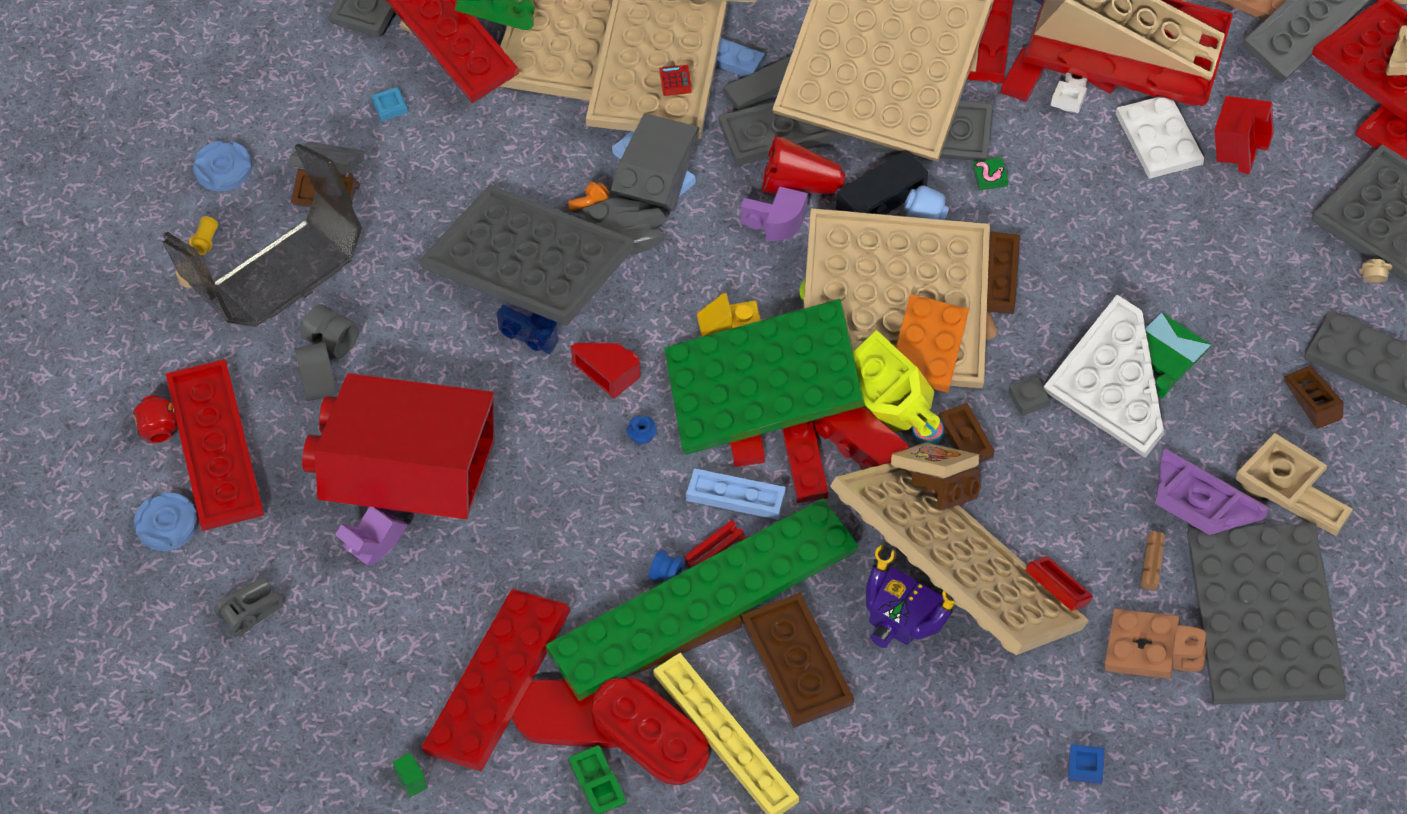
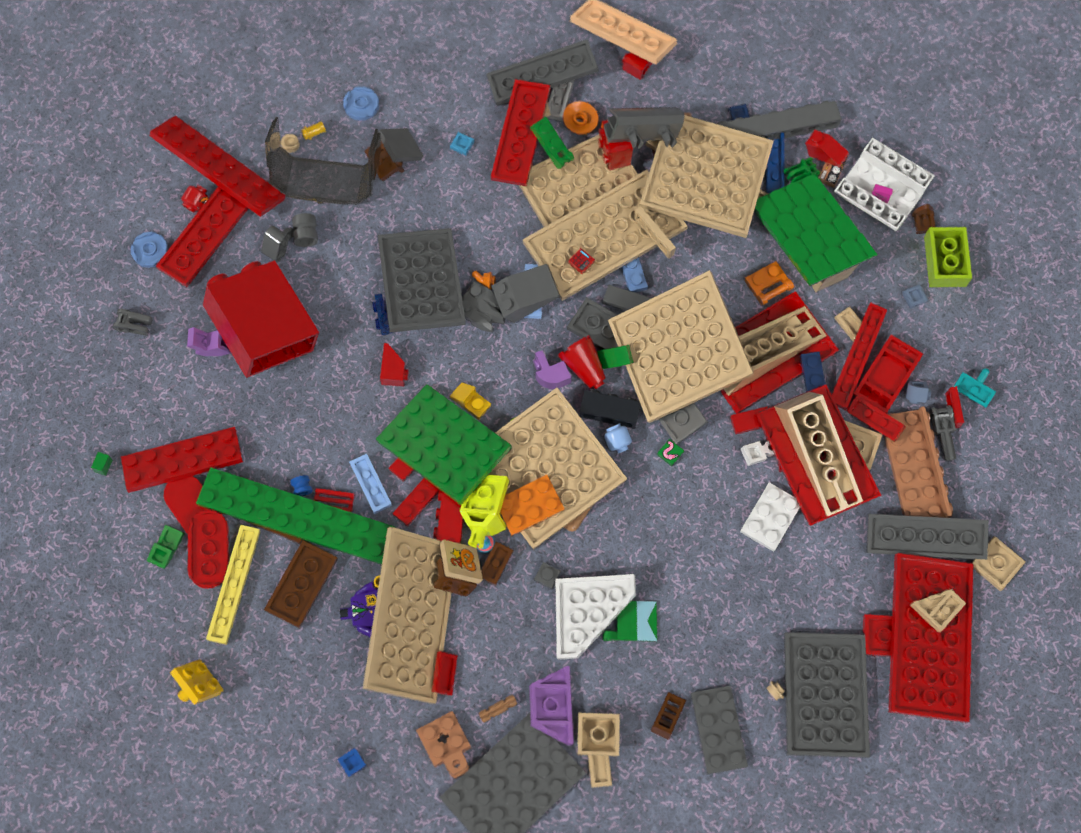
camera: 45 degrees right, 15 degrees up
(136, 363) = (217, 165): none -> red plate
(641, 436) = (371, 416): blue plate -> none
(827, 131) = (615, 356): none -> green slope
(1002, 272) = (610, 505): reddish brown plate -> none
(1243, 129) = (804, 557): red plate -> none

